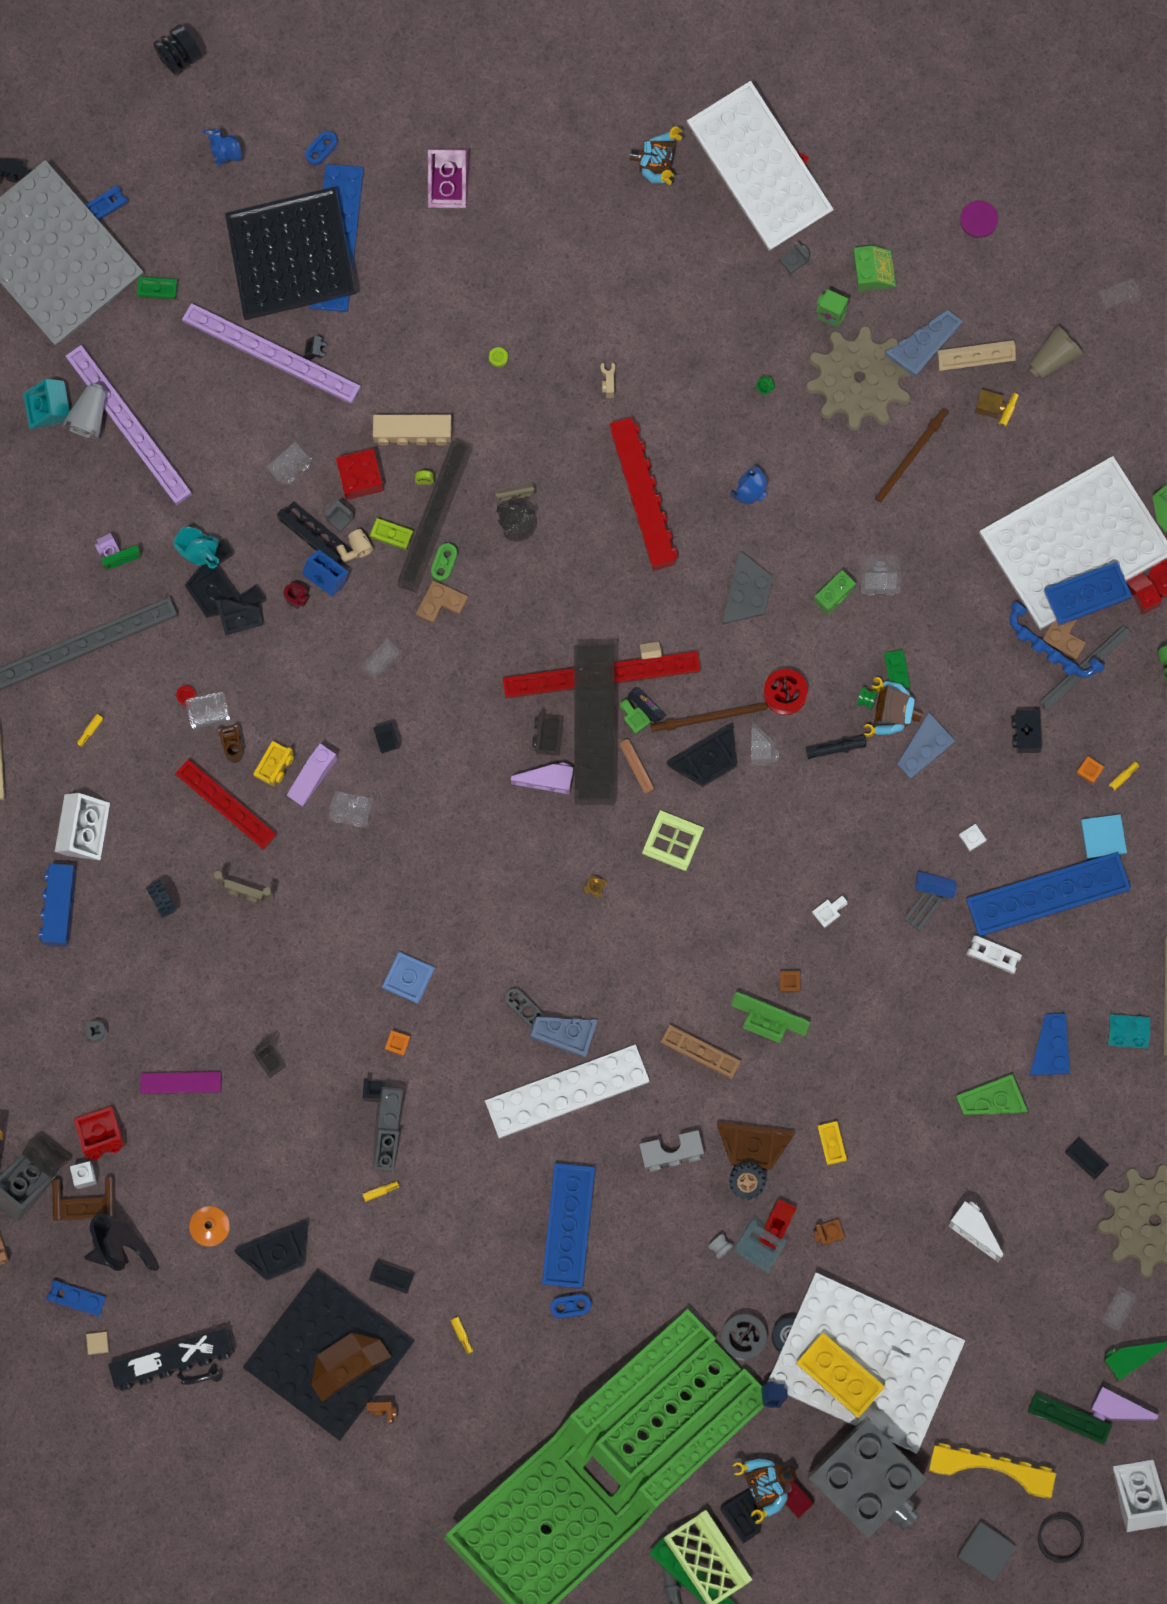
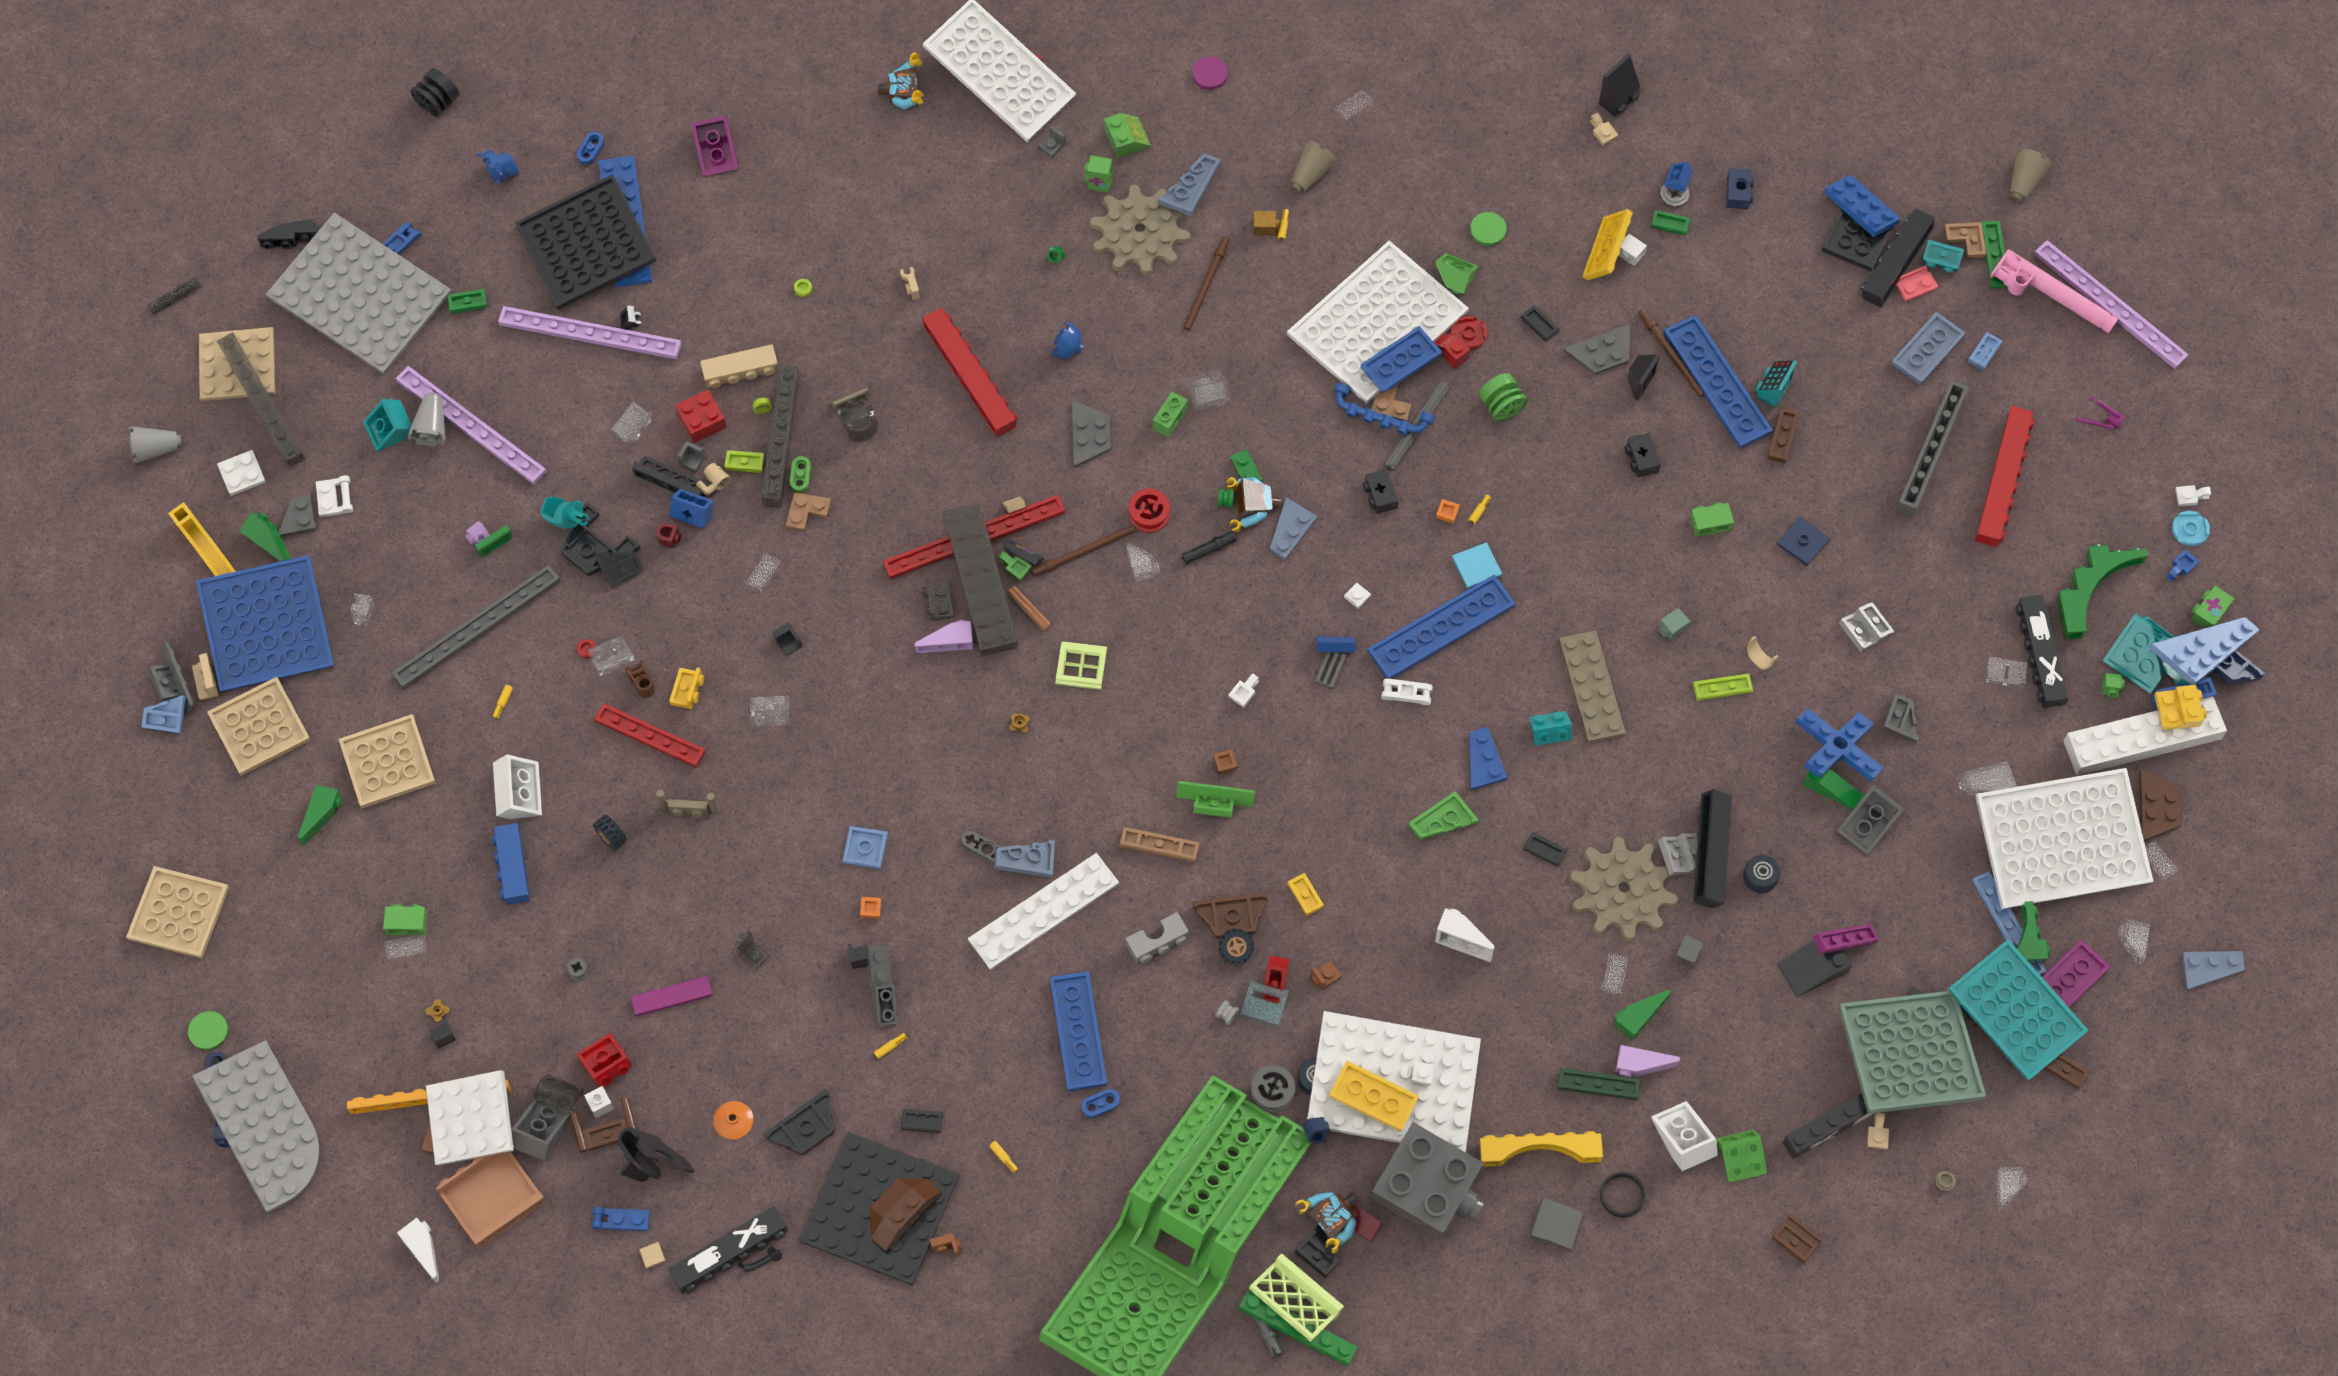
camera: 20 degrees left, 10 degrees down
(312, 774) = (725, 688): lavender slope -> none
(708, 758) = (1093, 585): black wing -> none
(976, 355) = (1241, 185): tan plate -> none

